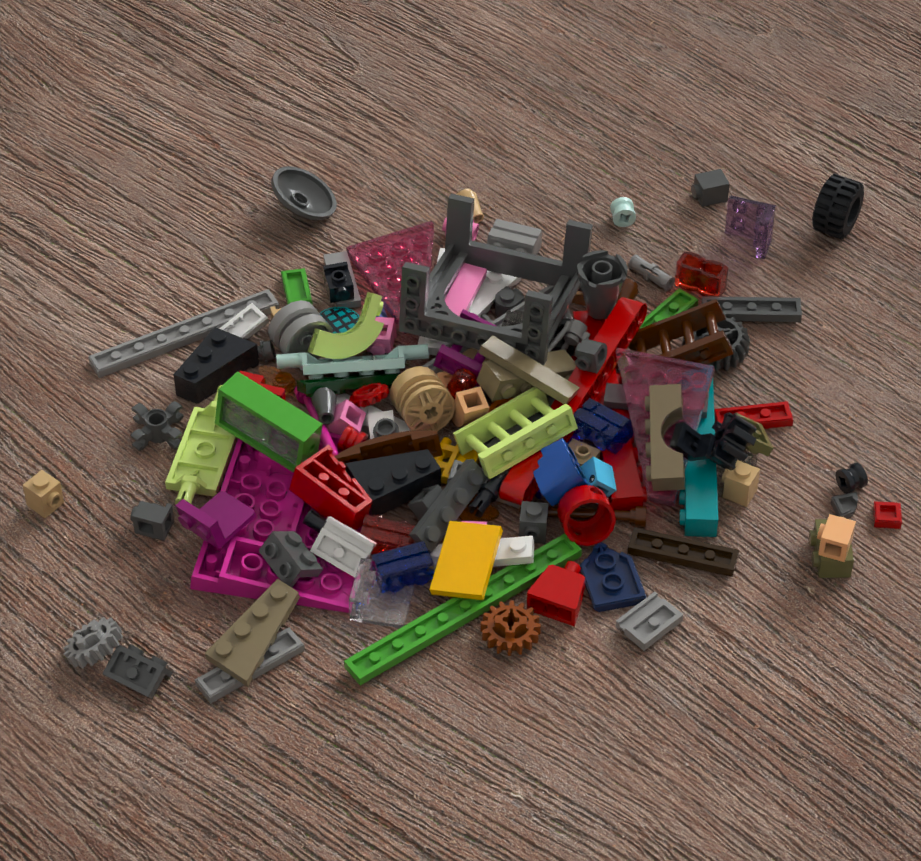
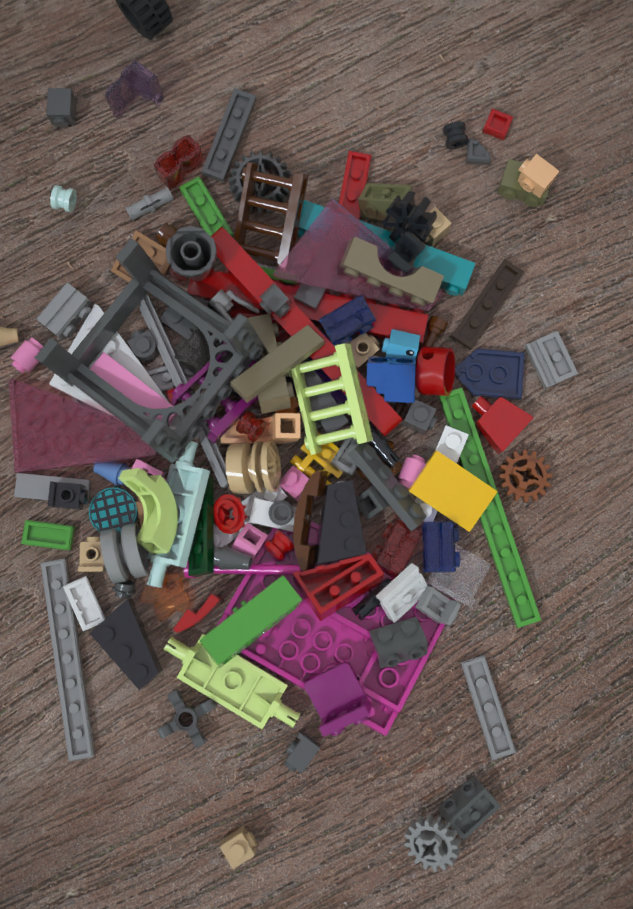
camera: 70 degrees left, 35 degrees up
(248, 639) = (471, 702): dark tan wing -> none
(340, 581) = (438, 606): none -> light grey bracket

